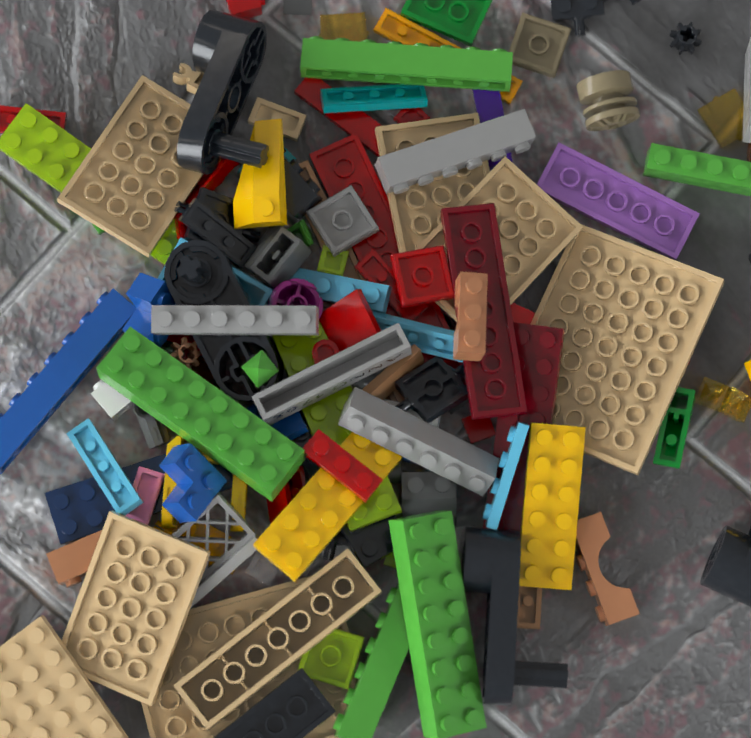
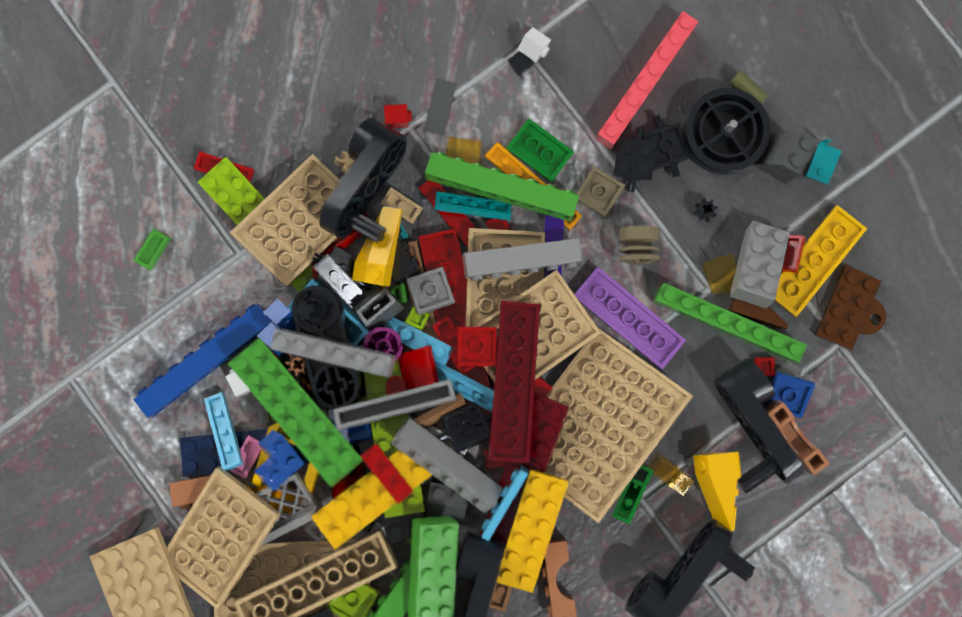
camera: 15 degrees right, 5 degrees up
(260, 368) = (345, 389): bright green slope -> none
(471, 319) = (503, 388): nougat arch -> none

